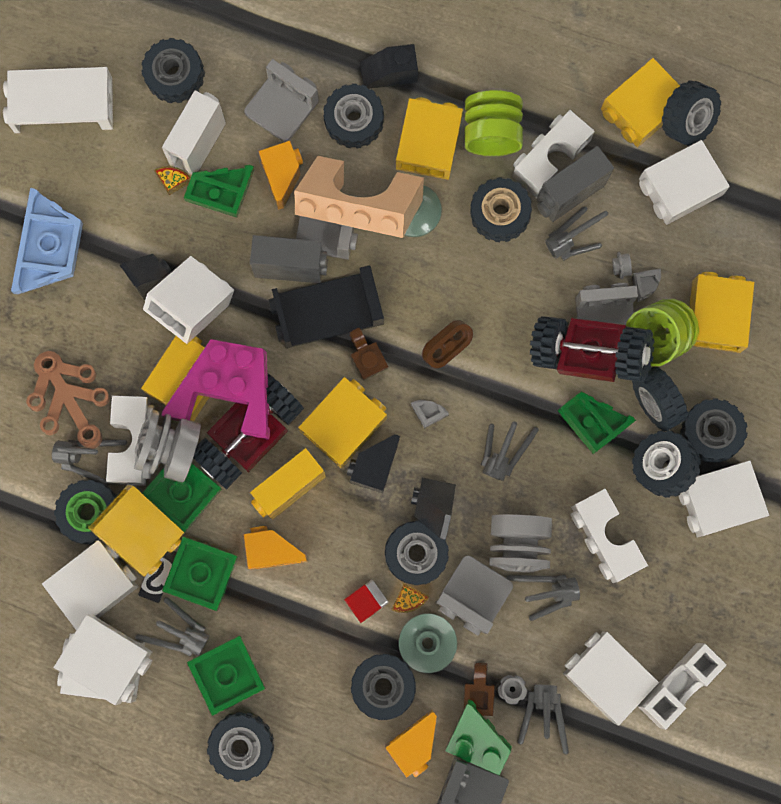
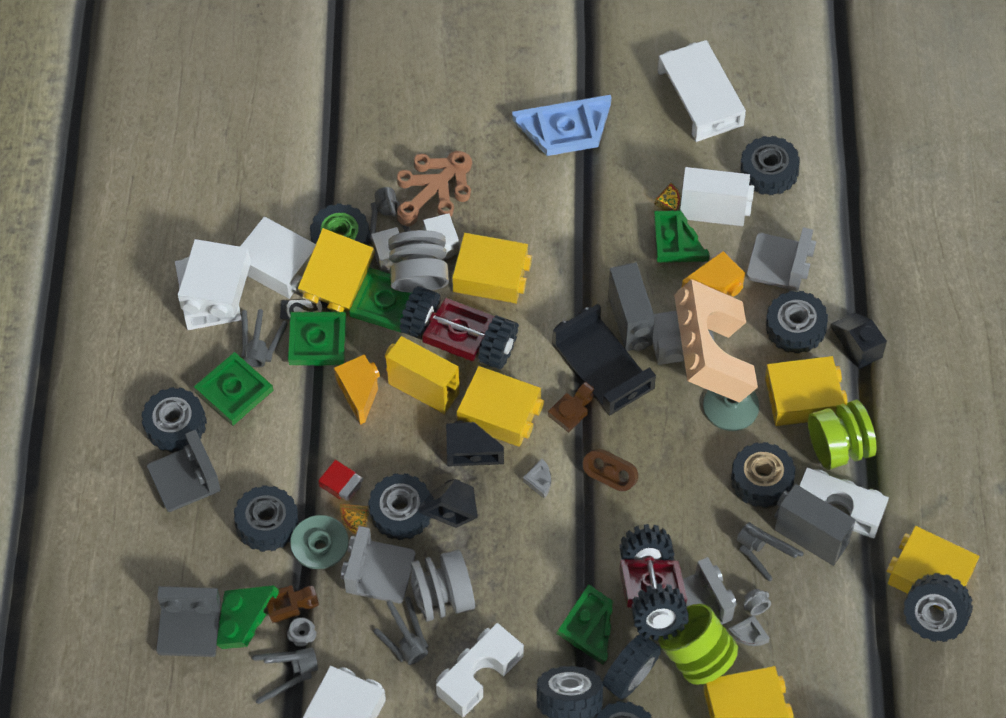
camera: 75 degrees right, 20 degrees down
(146, 272) = (568, 204): black slope -> none
(188, 299) = (560, 242): white brick -> none
(228, 374) = (502, 287): dark pink wing -> none
(306, 755) = (184, 475): none -> dark grey bracket
(414, 746) = (221, 561): light orange slope -> none
(497, 465) = (511, 549): dark grey plant -> none
(683, 182) = (866, 630): white brick -> none

